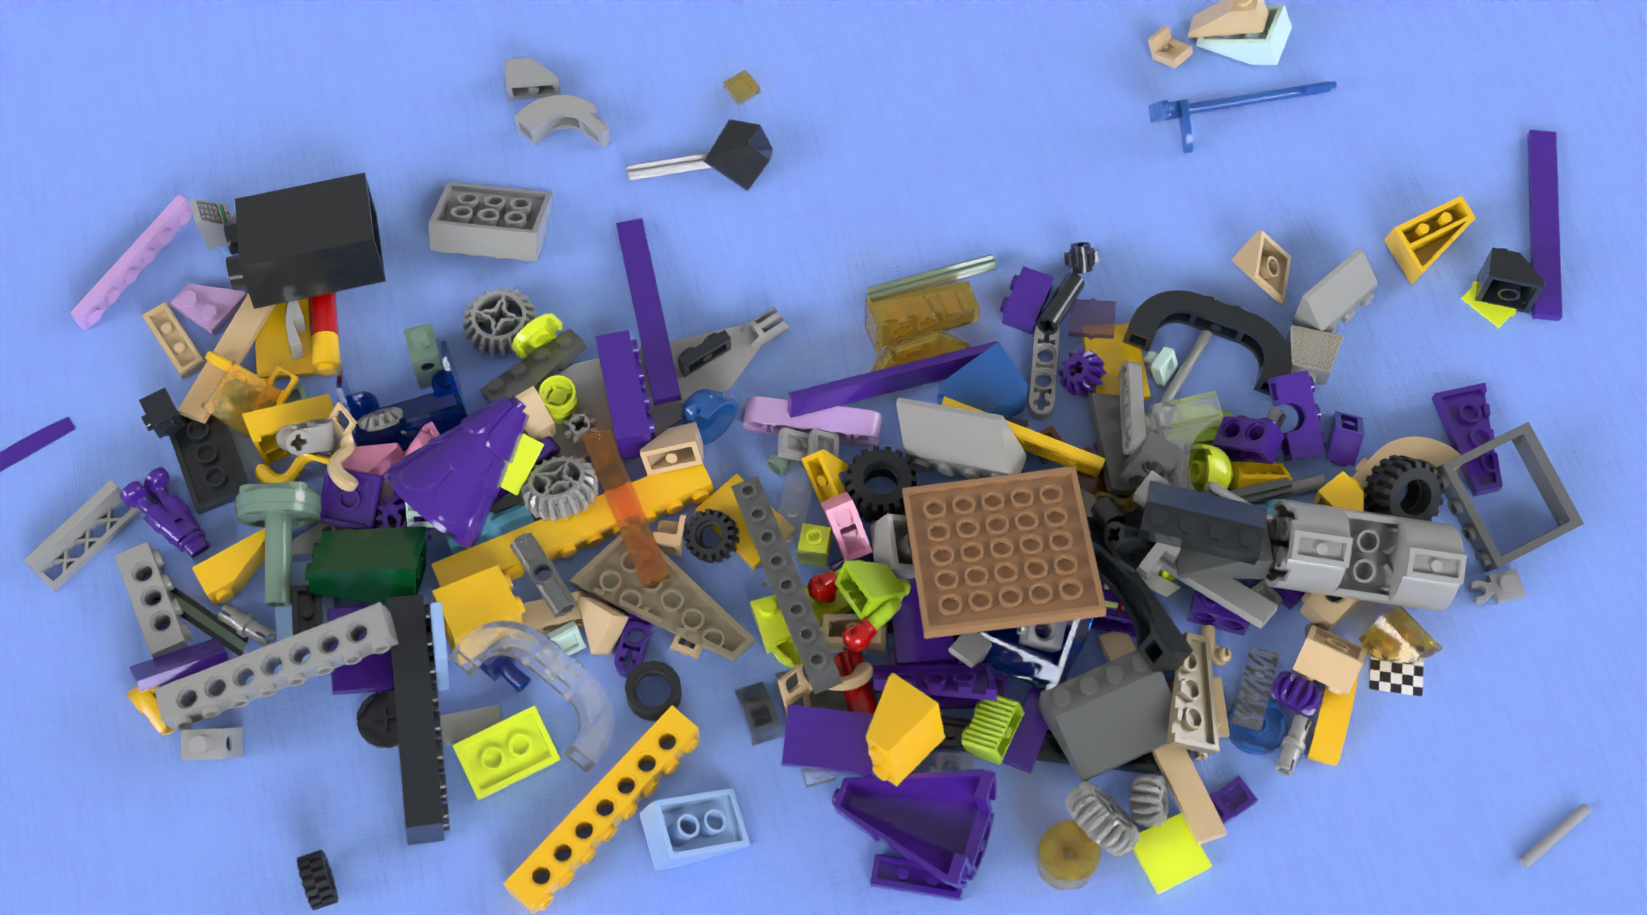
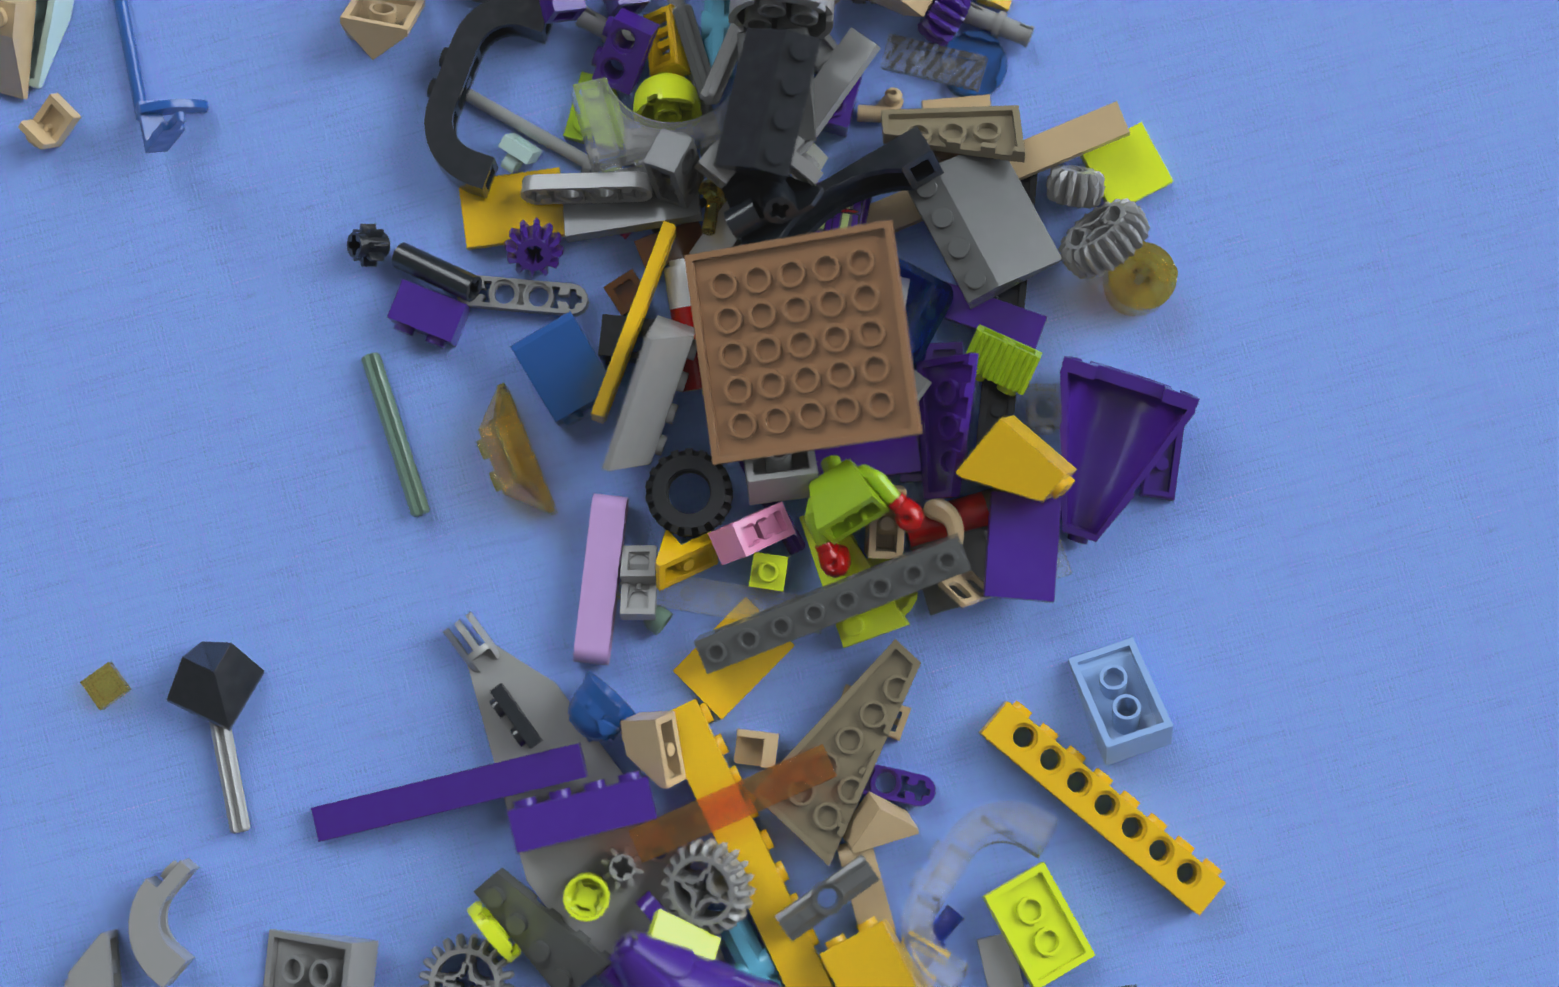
camera: 90 degrees left, 20 degrees up
(540, 422) = (614, 923): tan slope -> none
(568, 638) = (897, 864): light aqua tile -> none
(649, 669) = (978, 771): black tyre -> none
(727, 541) = (775, 710): black tyre -> none
(758, 713) = (980, 633): clear smoke slope -> none
(881, 381) = (550, 479): dark purple tile -> none
(919, 310) = (452, 446): clear yellow wedge -> none
(1092, 319) = (454, 233): clear purple piece -> none
(1233, 800) = (1064, 97): dark purple slope -> none

